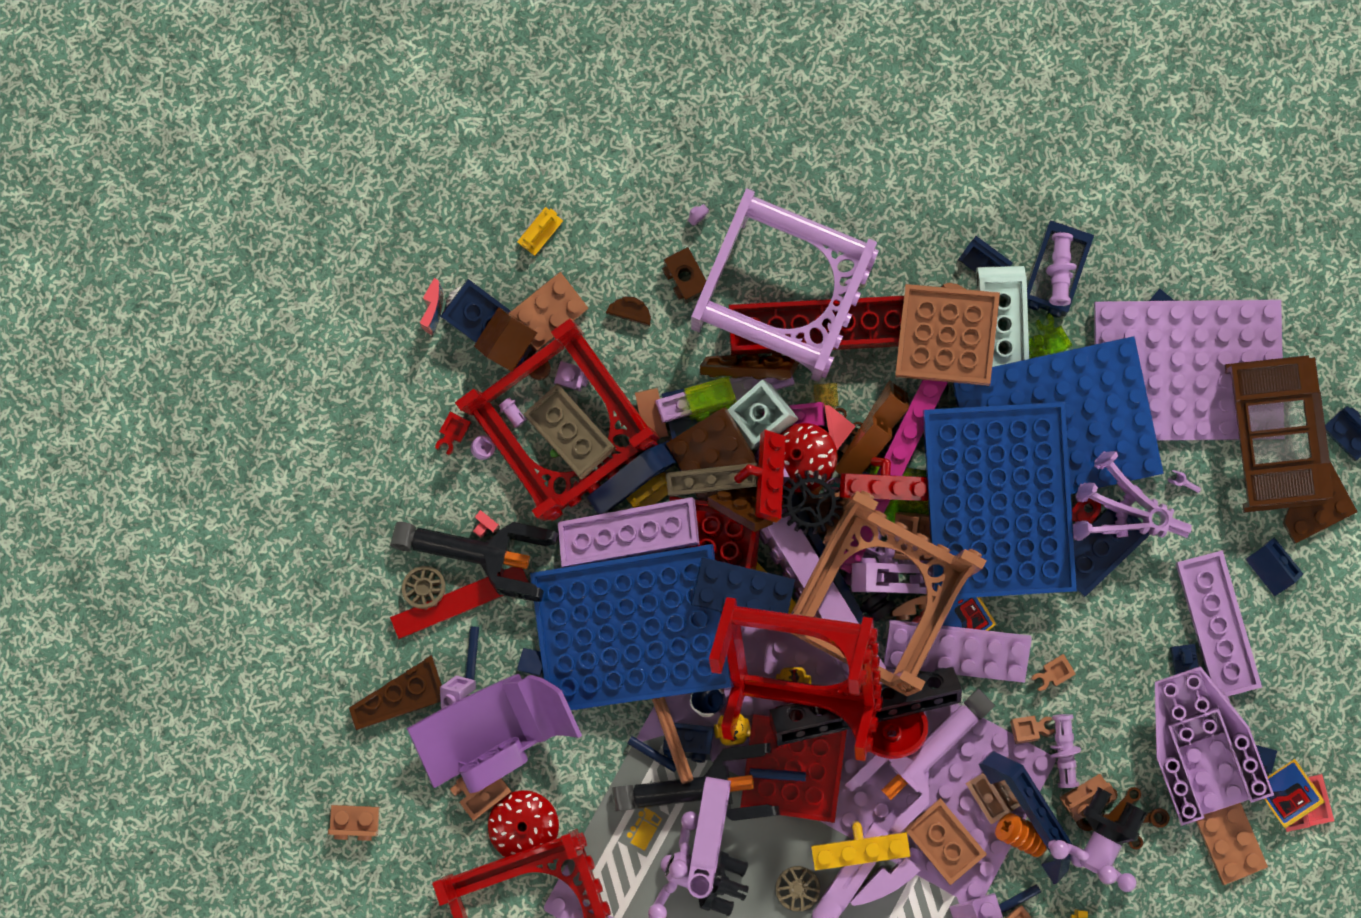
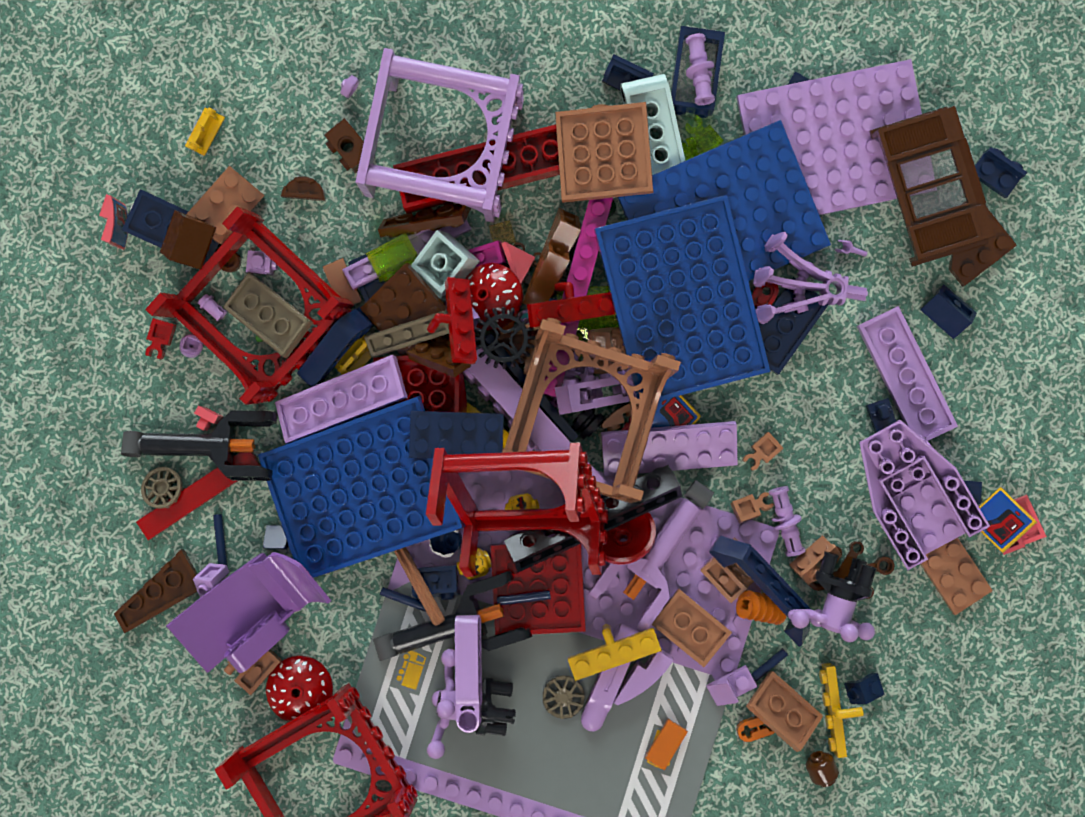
camera: 10 degrees left, 5 degrees up
(354, 820) = (141, 717): nougat bracket -> none

